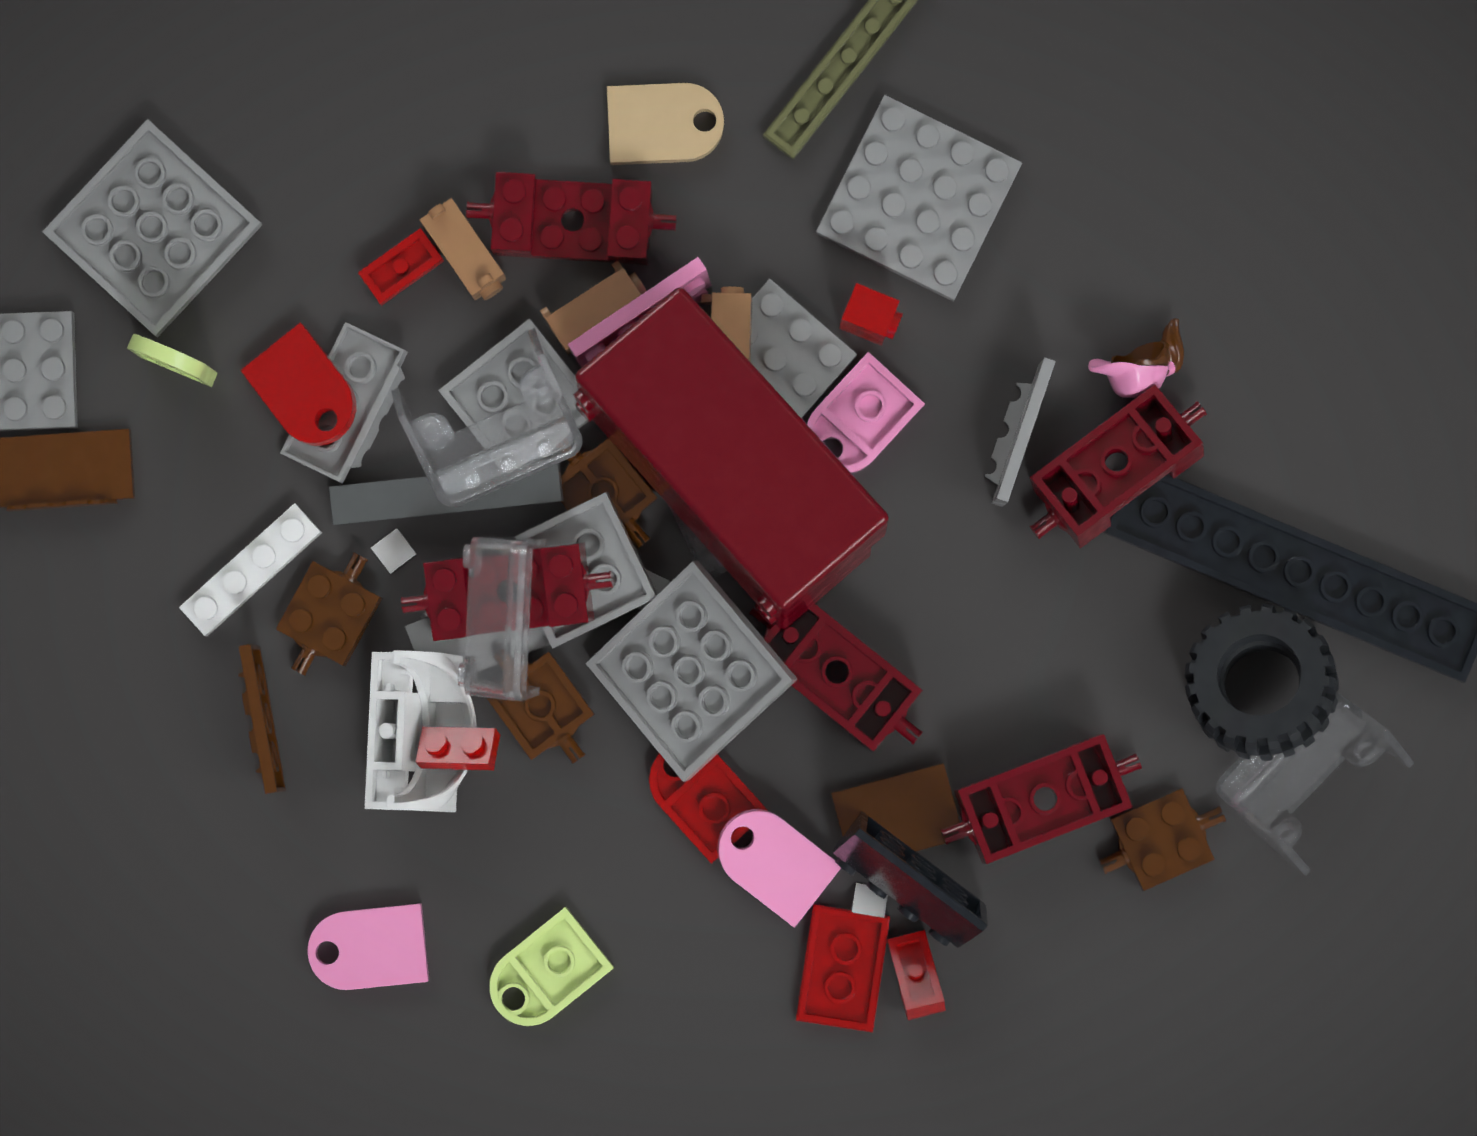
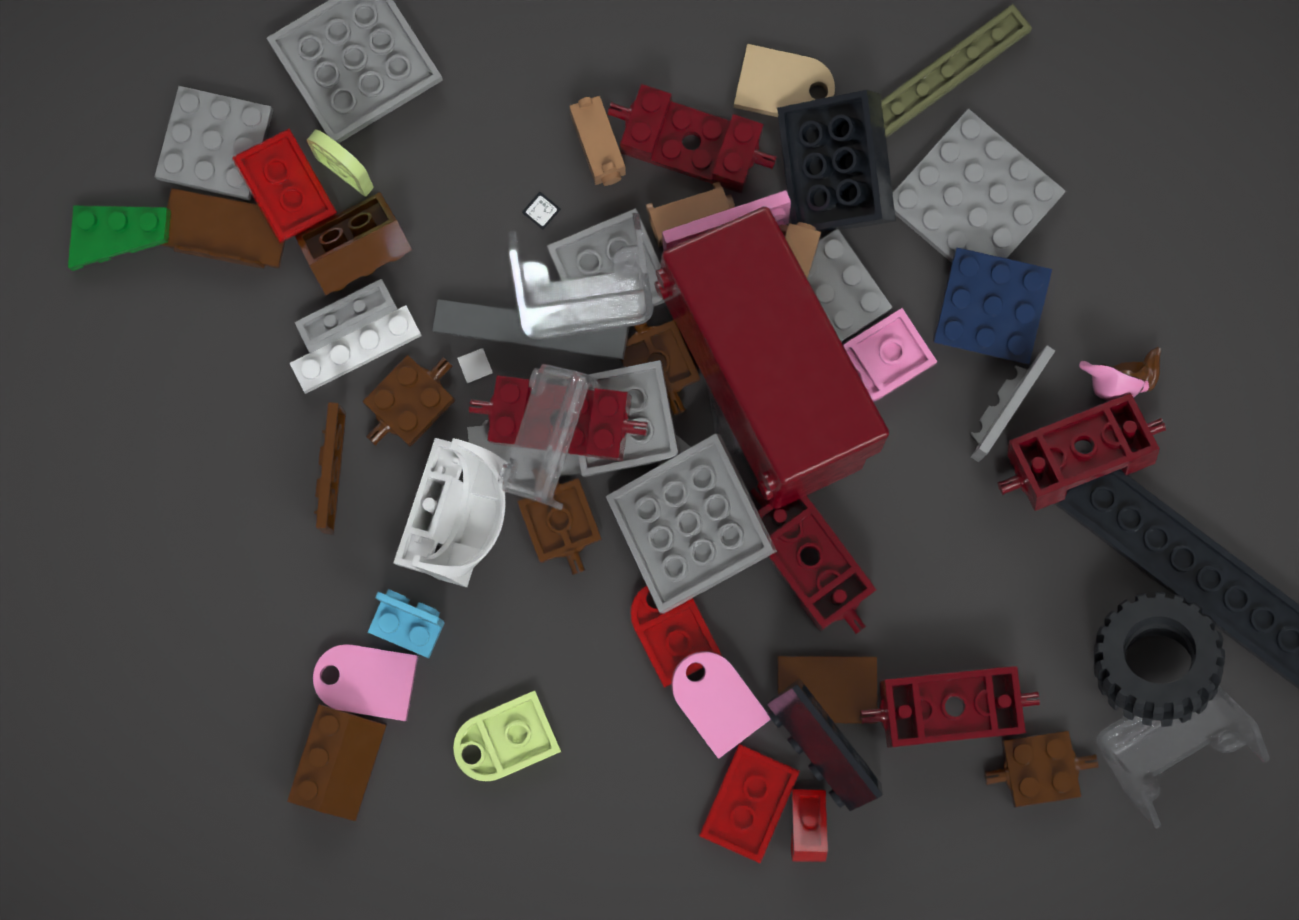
camera: 15 degrees right, 5 degrees down
(113, 401) = (284, 185): none -> red tile
(212, 447) = (353, 243): none -> reddish brown slope
(228, 535) = (345, 316): none -> light grey plate
(302, 385) = (438, 213): red tile -> none
(363, 1050) = (337, 763): none -> reddish brown slope
(373, 372) = (469, 238): light grey piece -> none
(398, 873) = (406, 625): none -> medium azure bracket
(401, 266) = (544, 141): red plate -> none
(421, 347) = (541, 210): none -> sticker
(458, 748) = (483, 534): plate -> none
(748, 201) = (837, 162): none -> black slope
(868, 902) = (785, 754): white sticker -> none
(871, 315) = (912, 277): red brick -> none
(971, 321) = (992, 305): none -> dark blue plate

